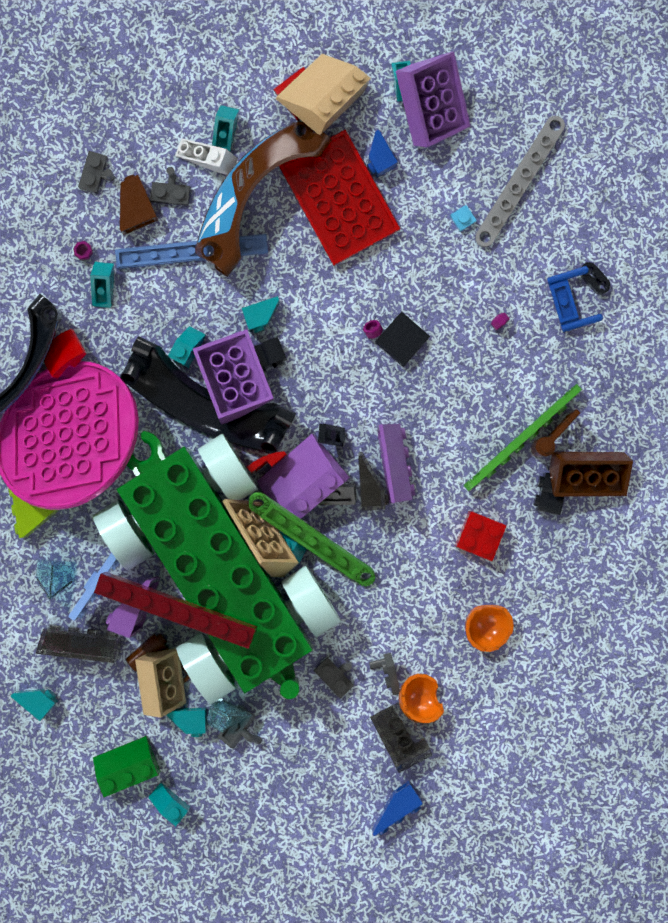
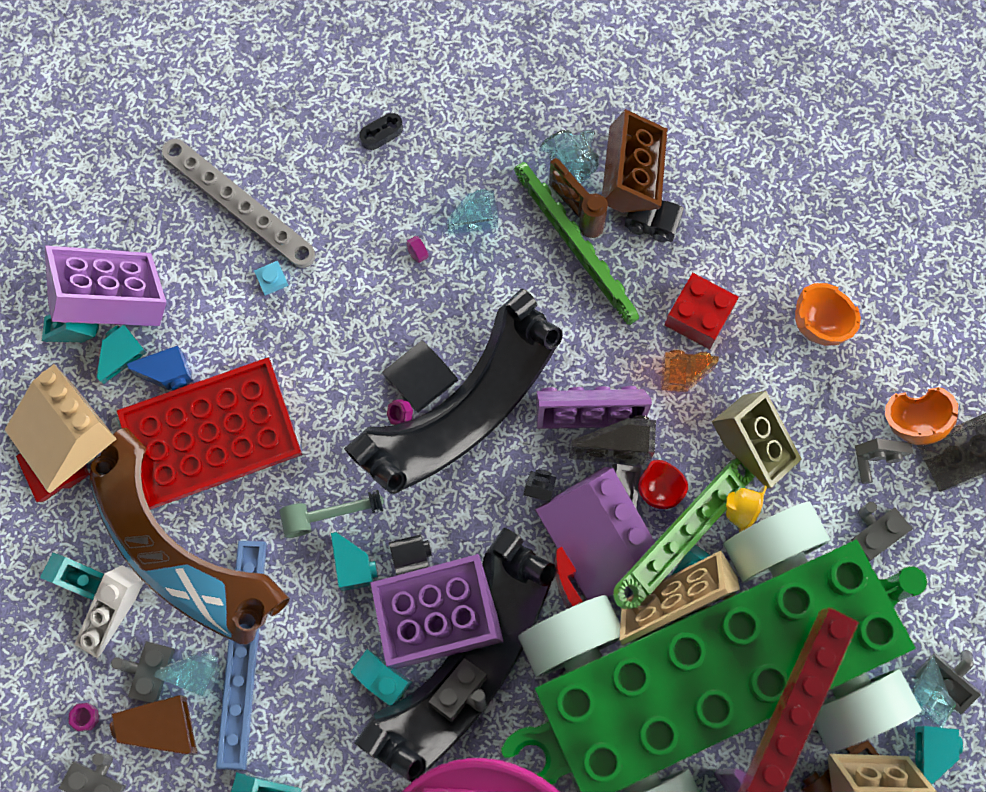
camera: 80 degrees left, 15 degrees down
(135, 156) = (83, 717): none -> magenta tile
(171, 221) = (192, 673): none -> clear light blue slope
(185, 400) = (459, 690): none -> dark grey plate
(285, 272) = (297, 520): none -> sand green piece
(334, 577) = (744, 507): none -> yellow piece
(345, 521) = (662, 485): none -> red helmet
(352, 353) = (505, 372): none -> black panel
(388, 120) = (116, 351): none -> teal slope
(388, 584) = (757, 437): none -> olive slope
(432, 528) = (684, 370): none -> clear orange slope
(535, 359) = (474, 213): none -> clear light blue slope
(565, 303) = (405, 168): blue plate -> none
(590, 426) = (573, 152): none -> clear light blue helmet

